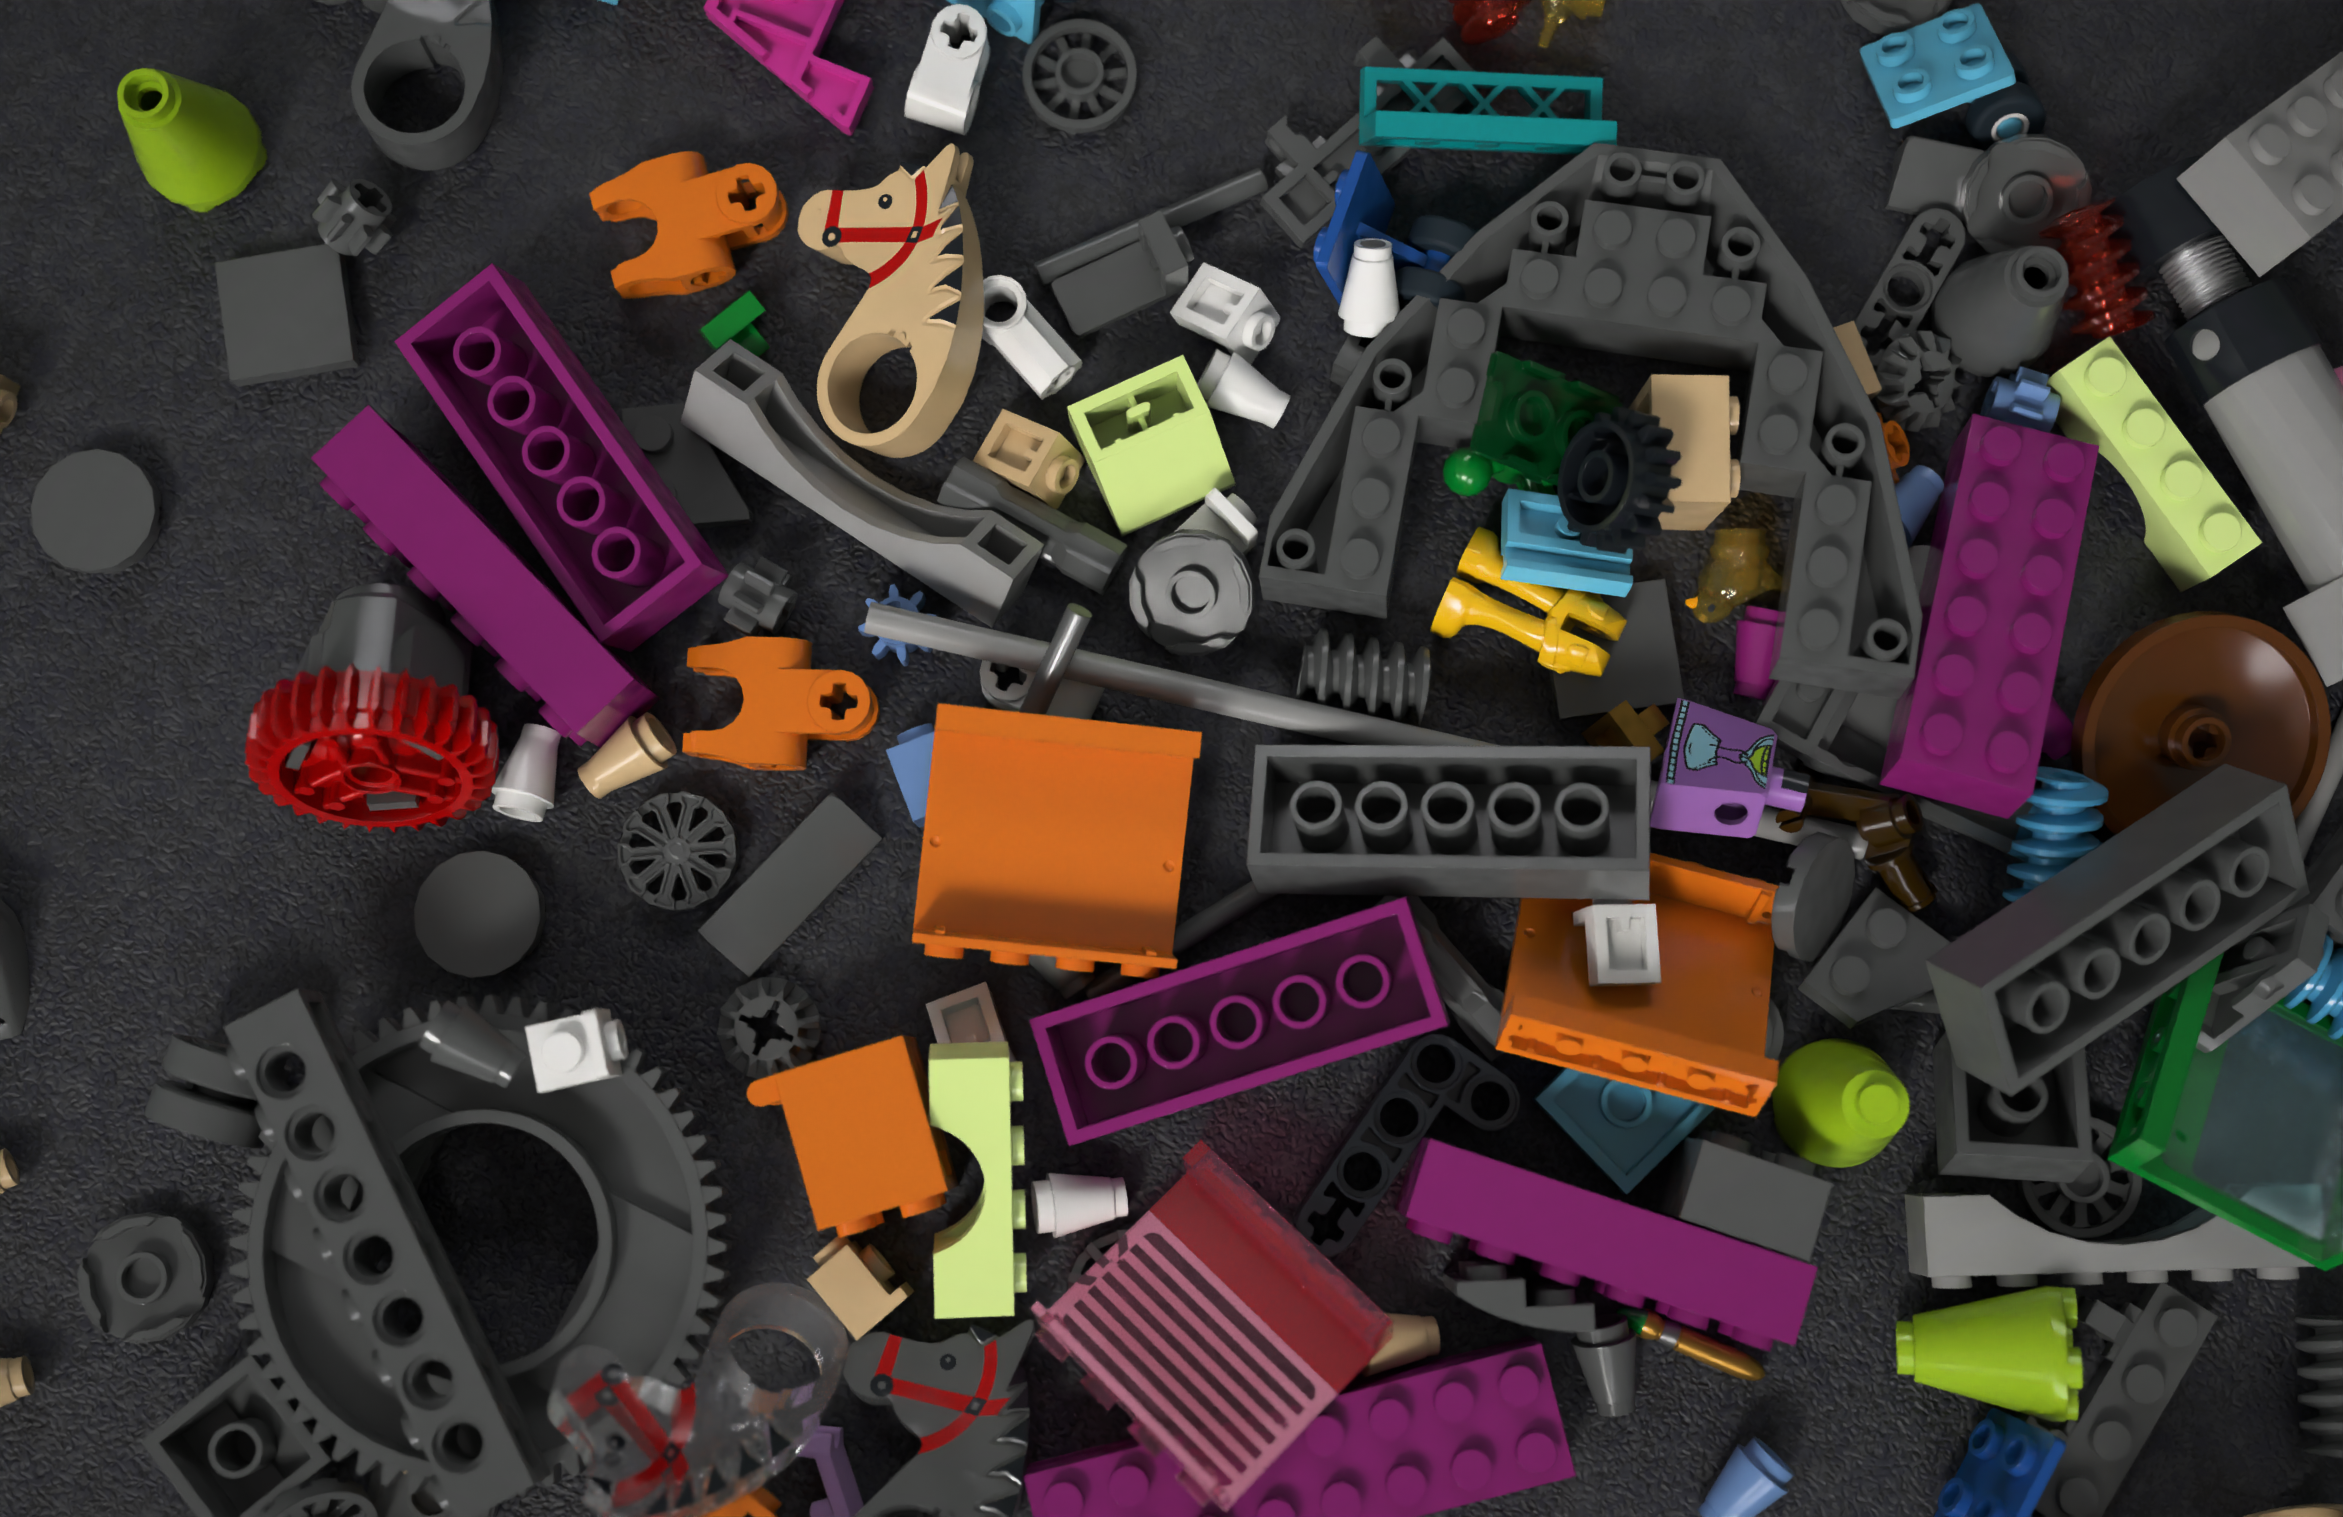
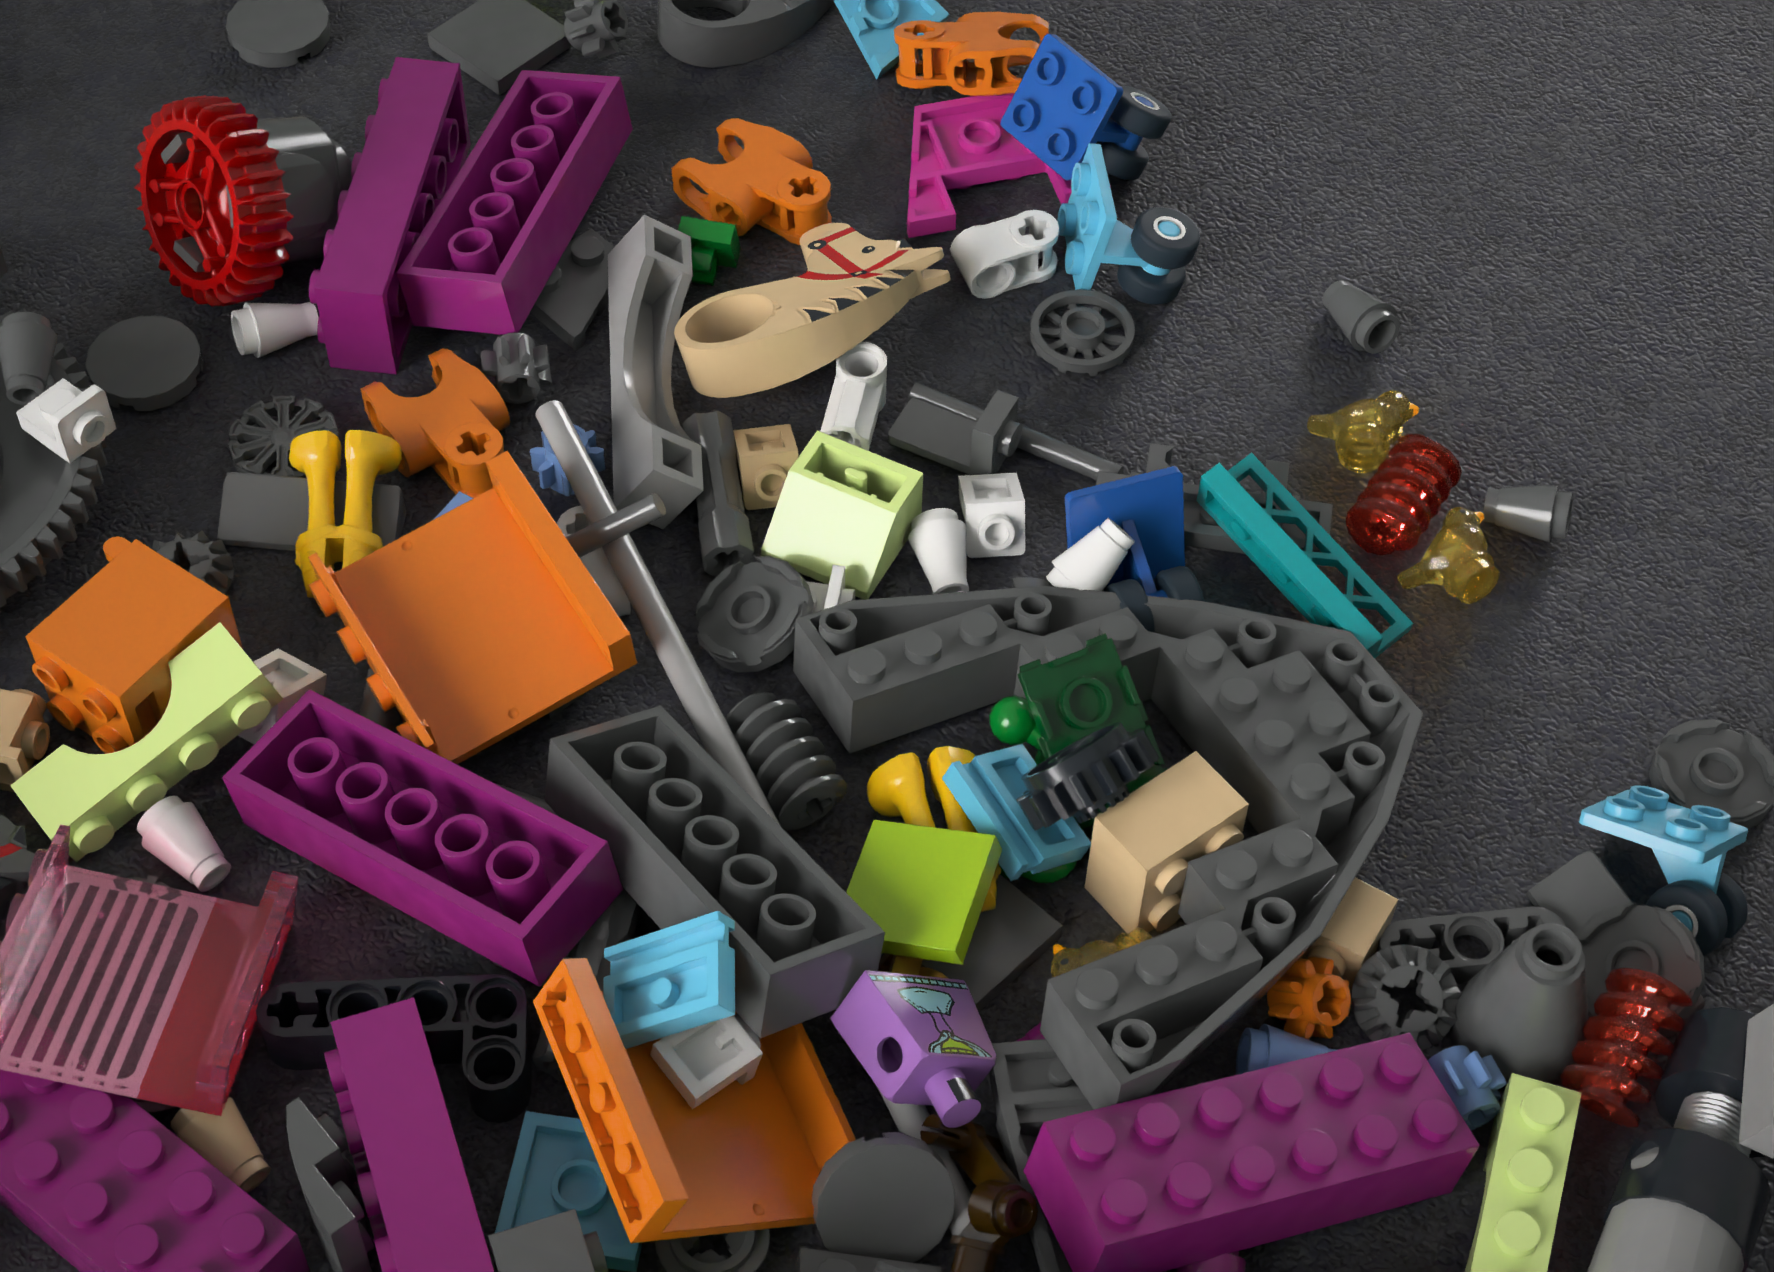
camera: 50 degrees right, 30 degrees down
(630, 754) = (333, 369): tan cone -> none
(760, 847) = (319, 458): none -> yellow piece
(1574, 939) = (671, 979): none -> medium azure plate
(1592, 676) = (924, 887): none -> lime tile

